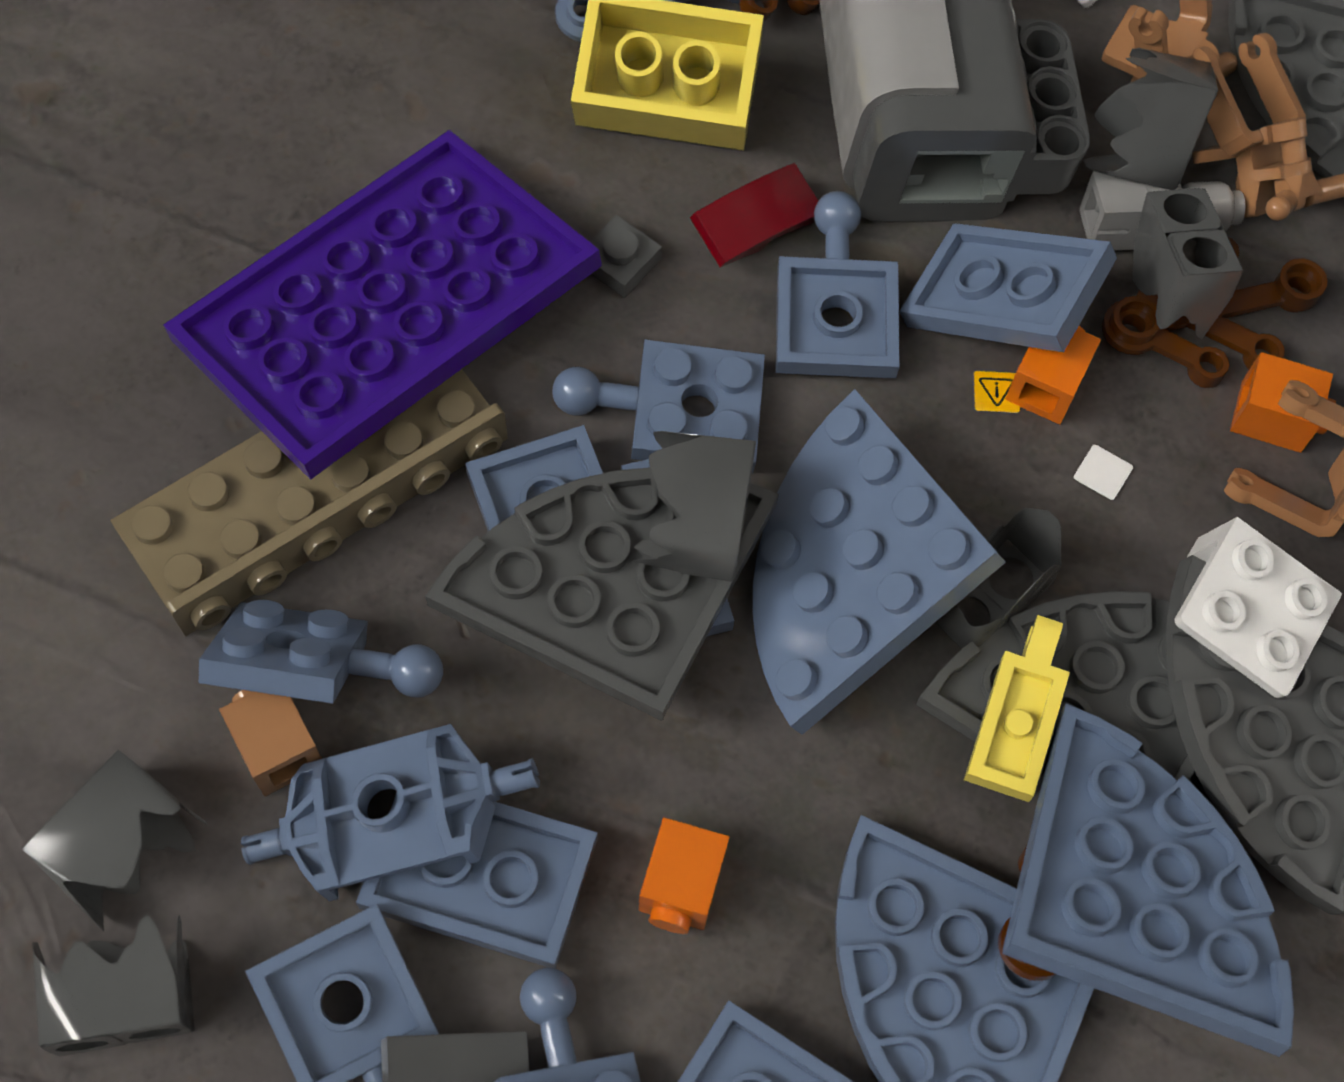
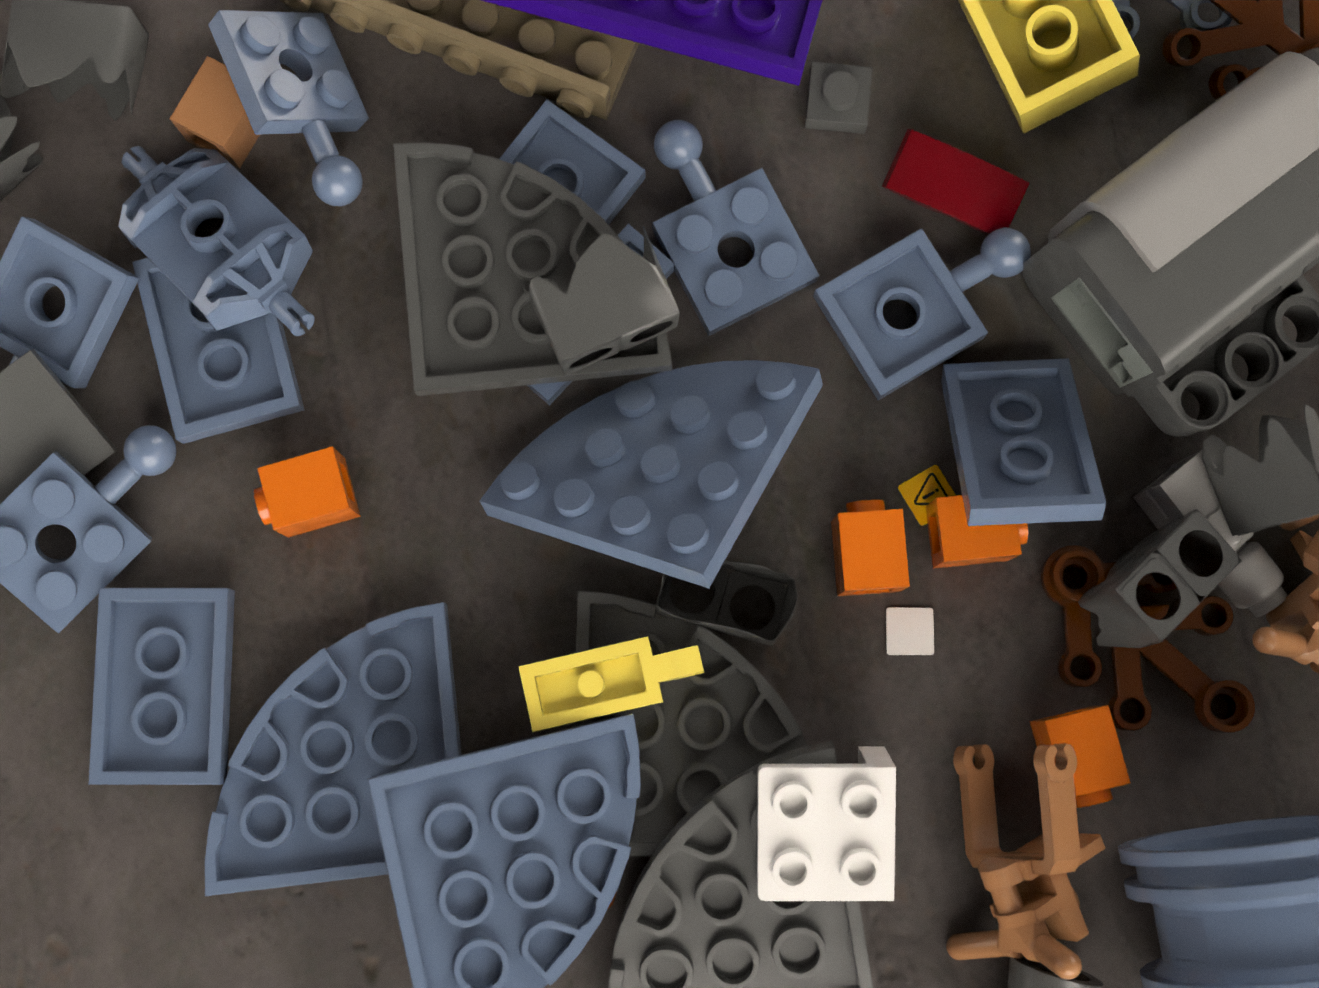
camera: 60 degrees right, 15 degrees up
(1023, 453) = (869, 549): none -> orange brick

